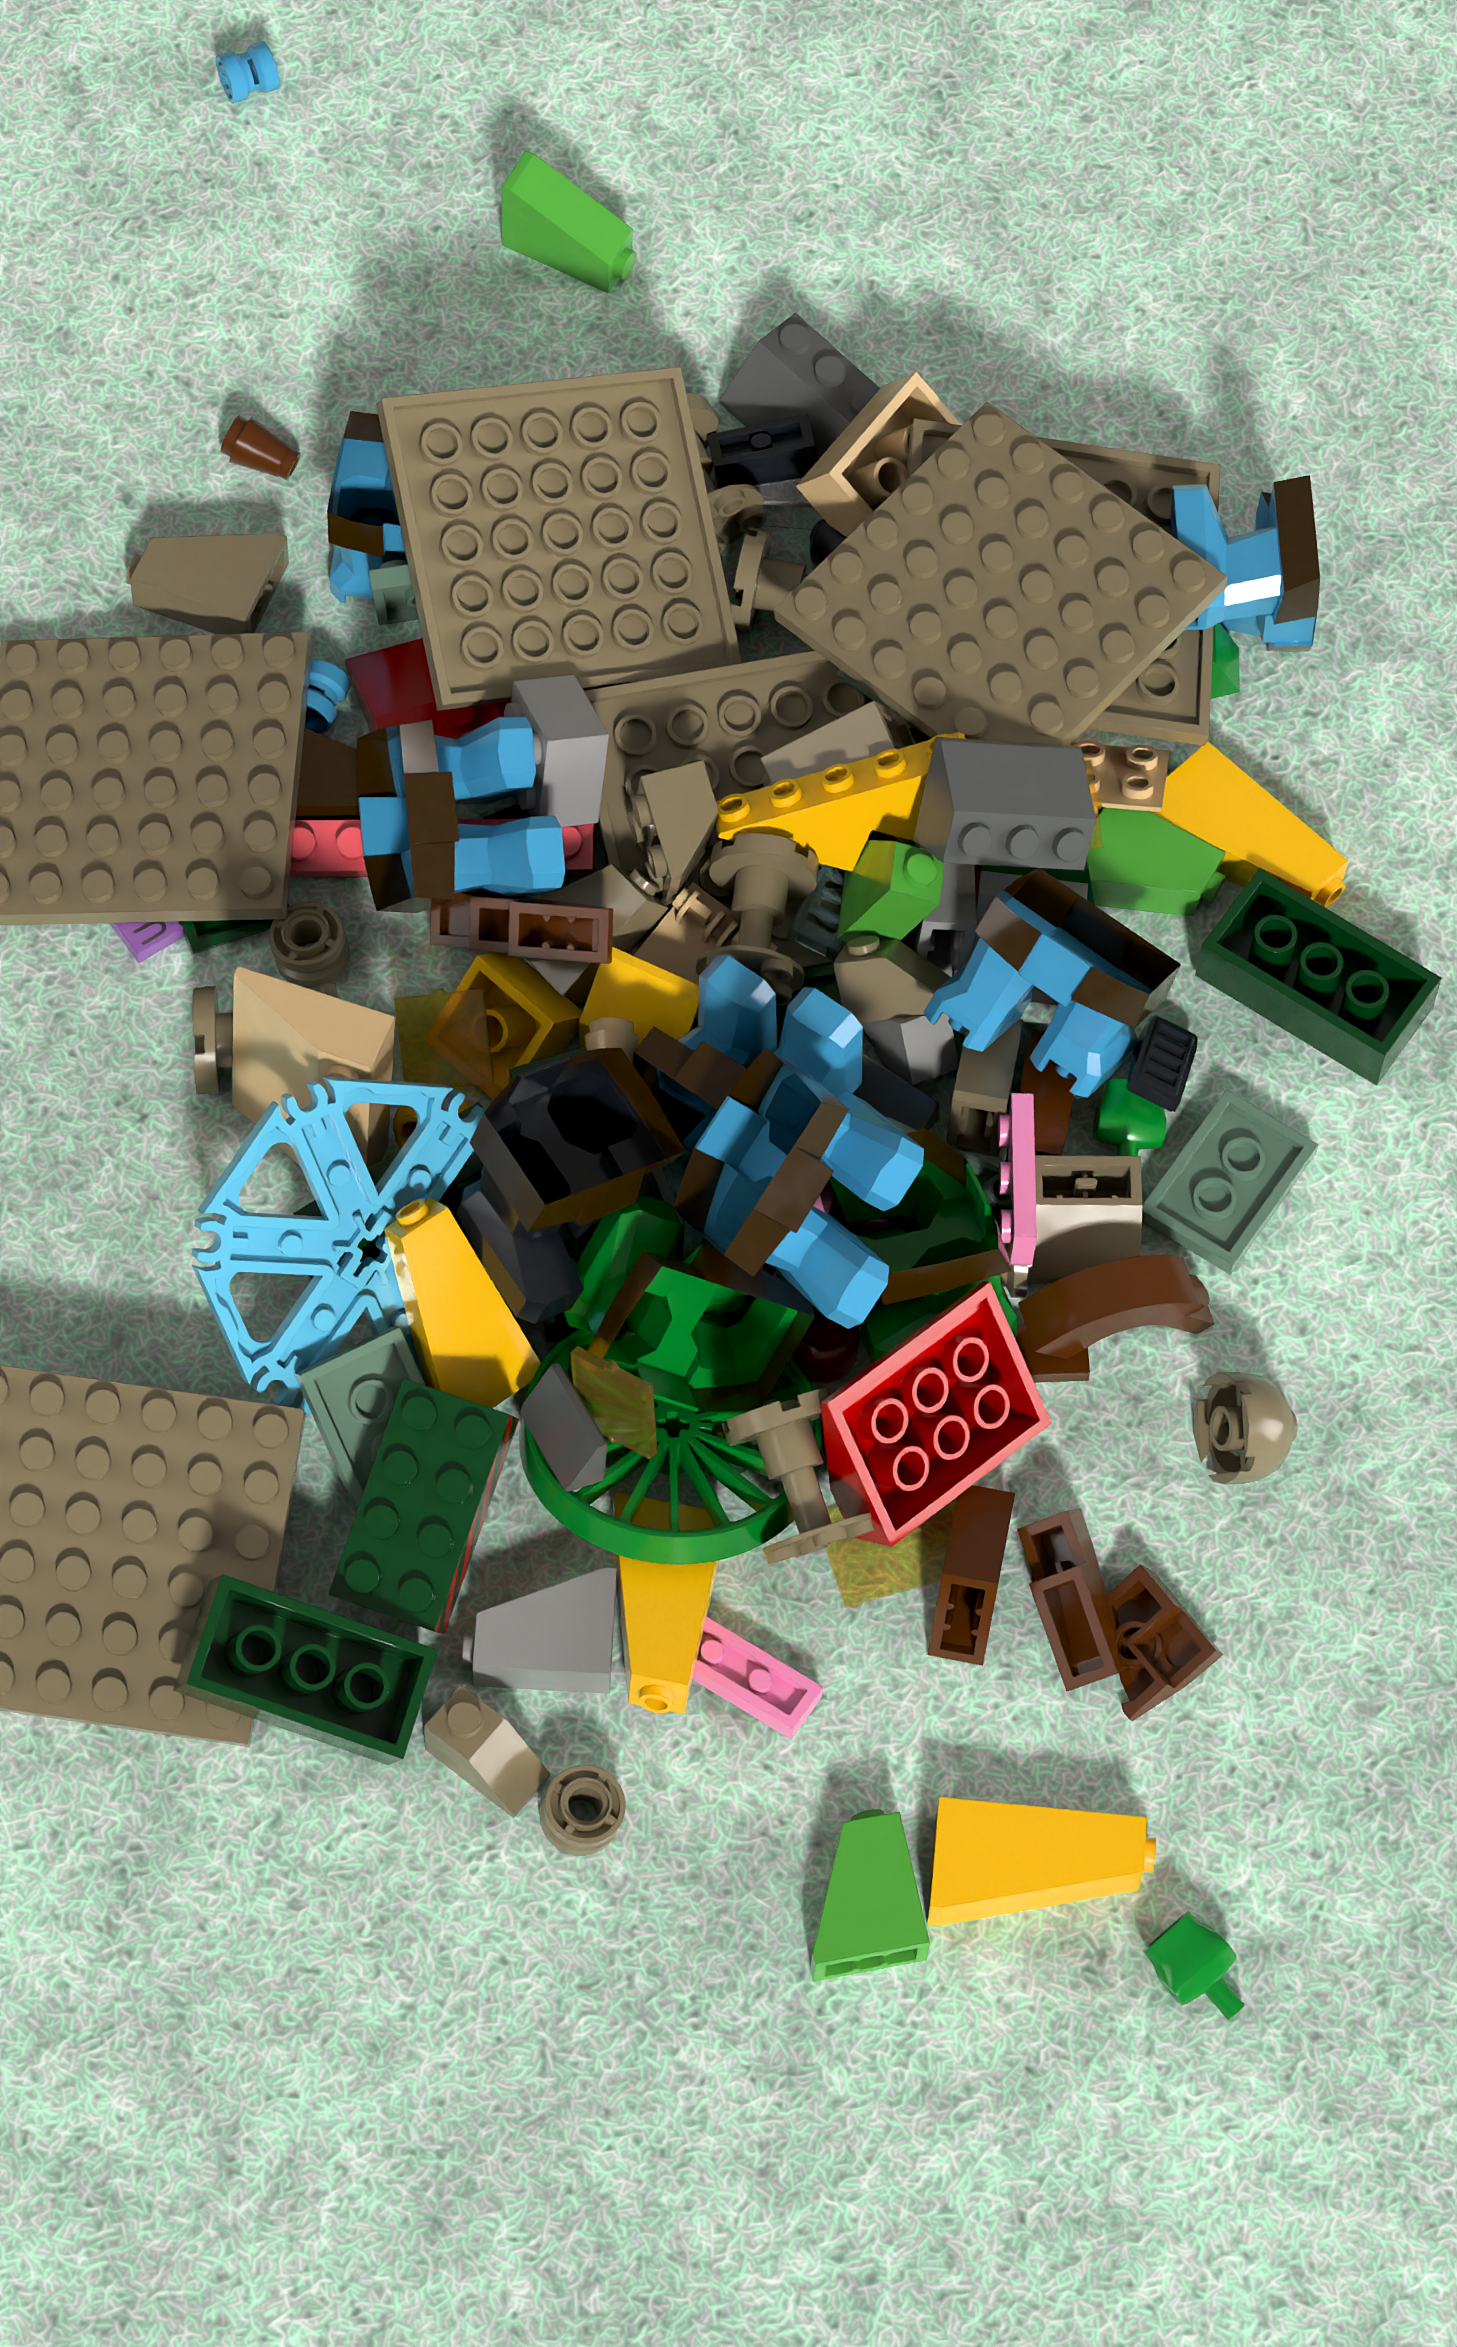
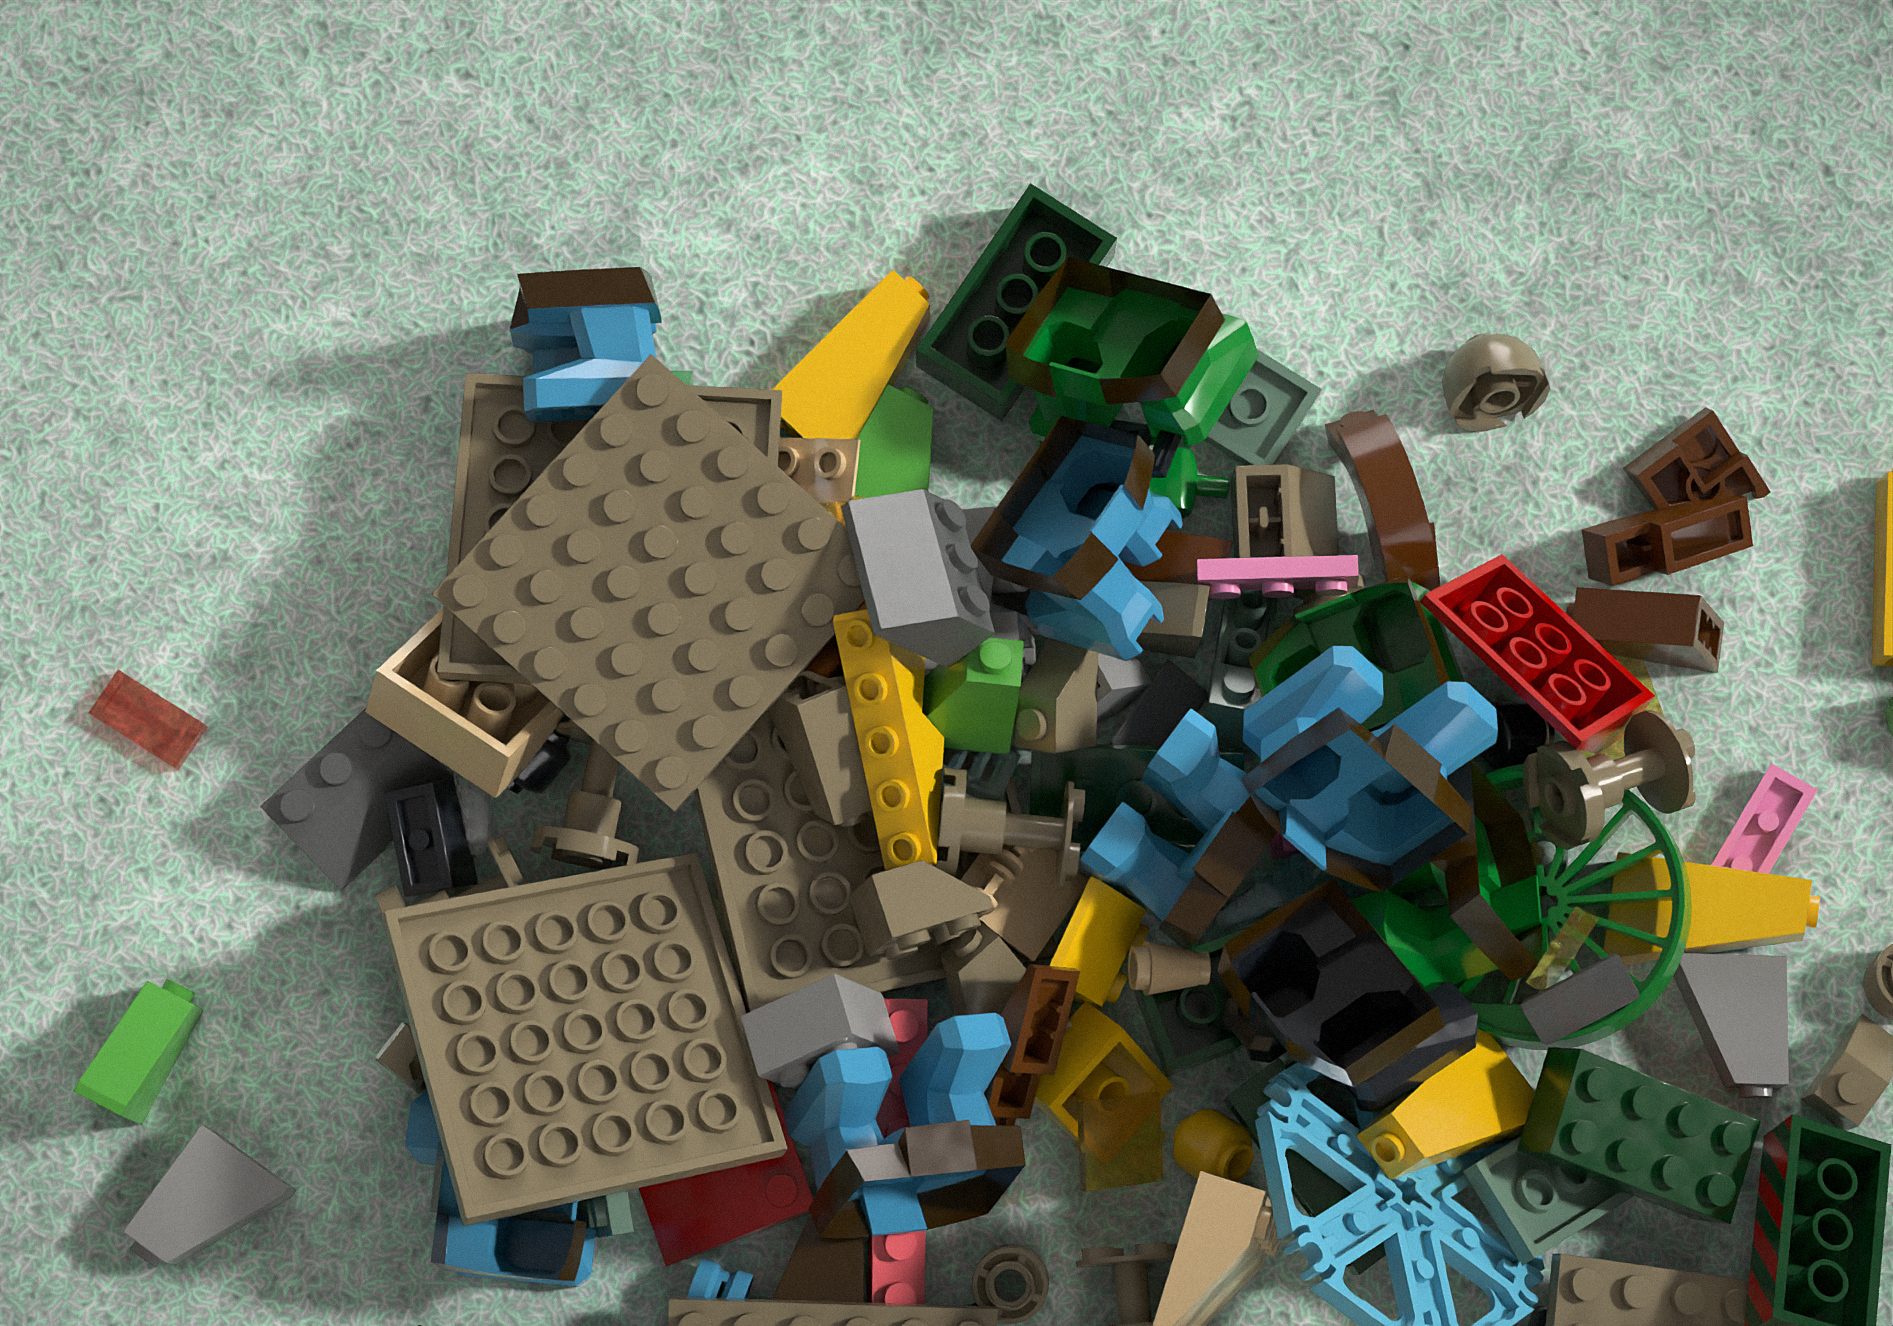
camera: 90 degrees left, 15 degrees up
(429, 283) = (203, 1199): none -> light grey slope
(887, 246) = (148, 720): none -> clear red tile
(1255, 1033) = (1127, 338): none -> green piece

